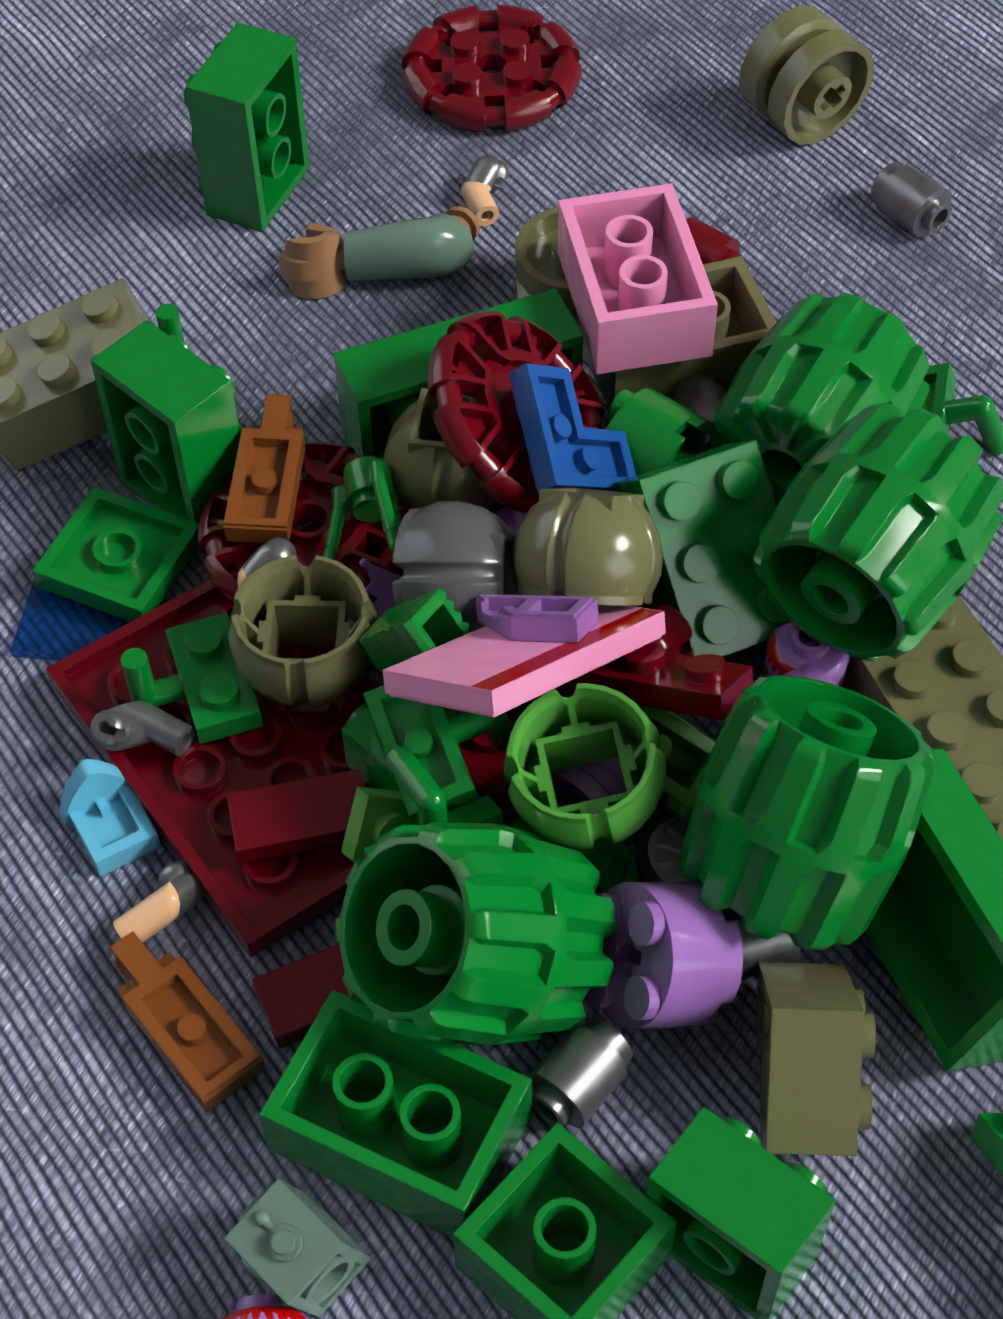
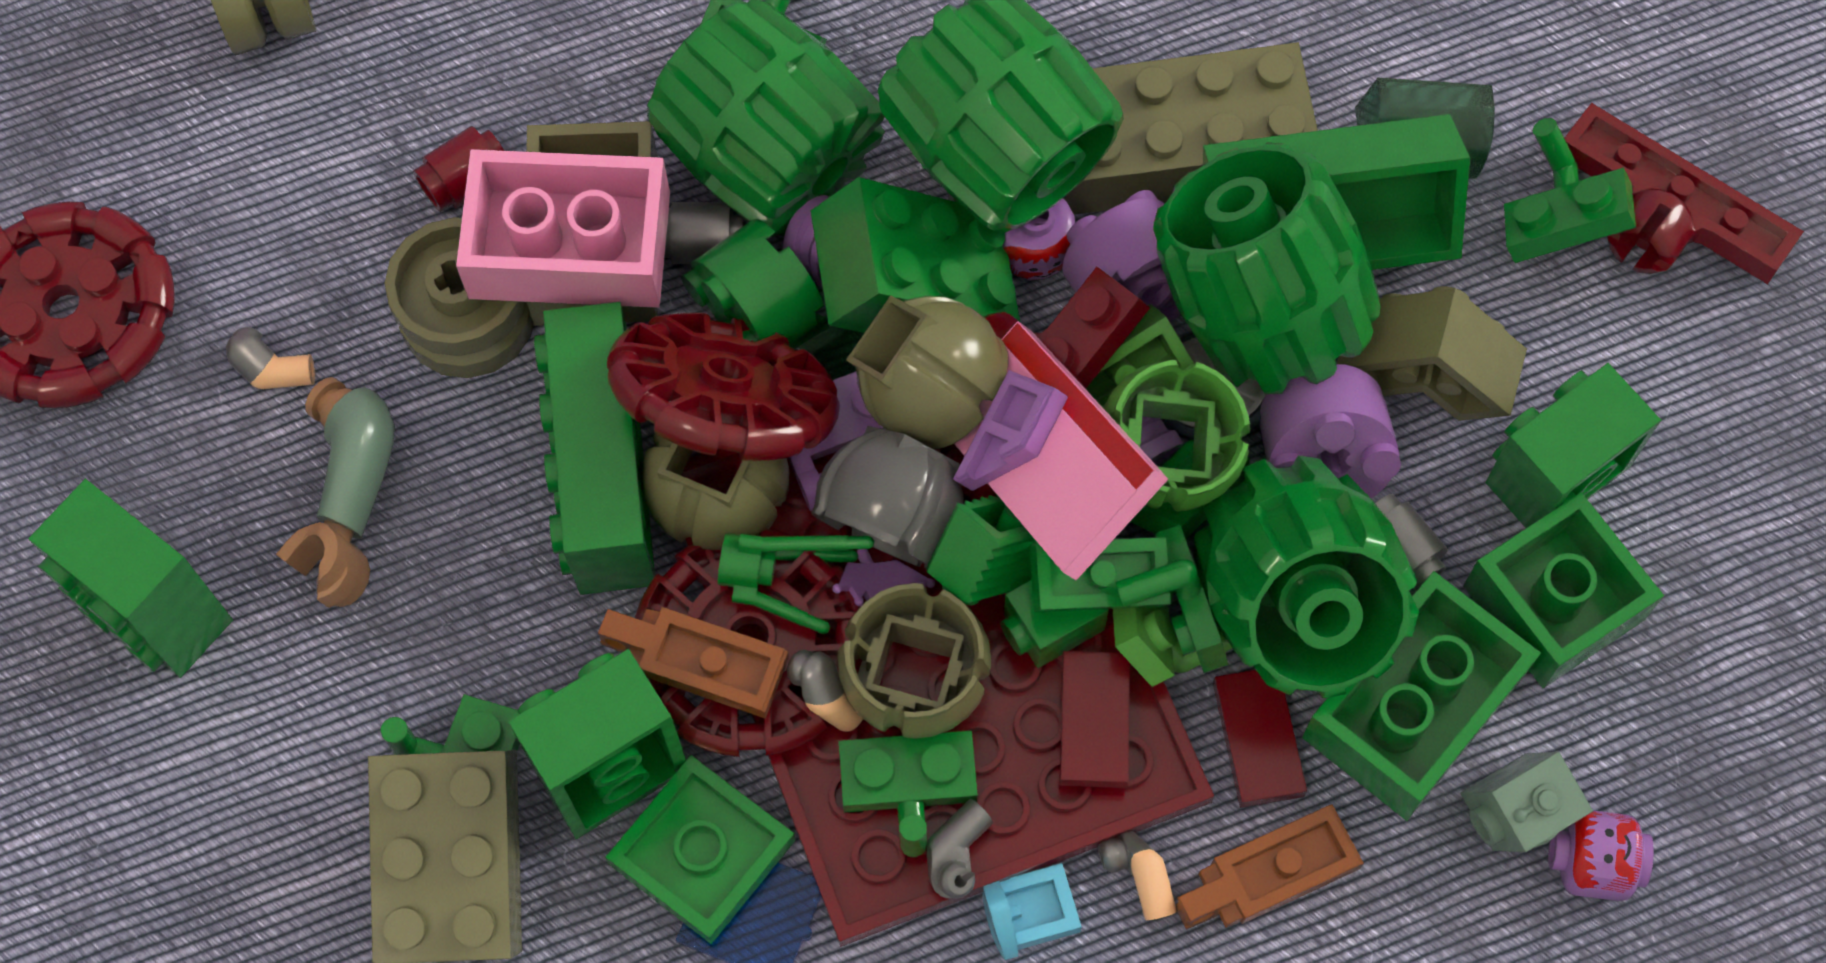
camera: 75 degrees left, 15 degrees up
(556, 441) = (787, 346): blue plate -> none

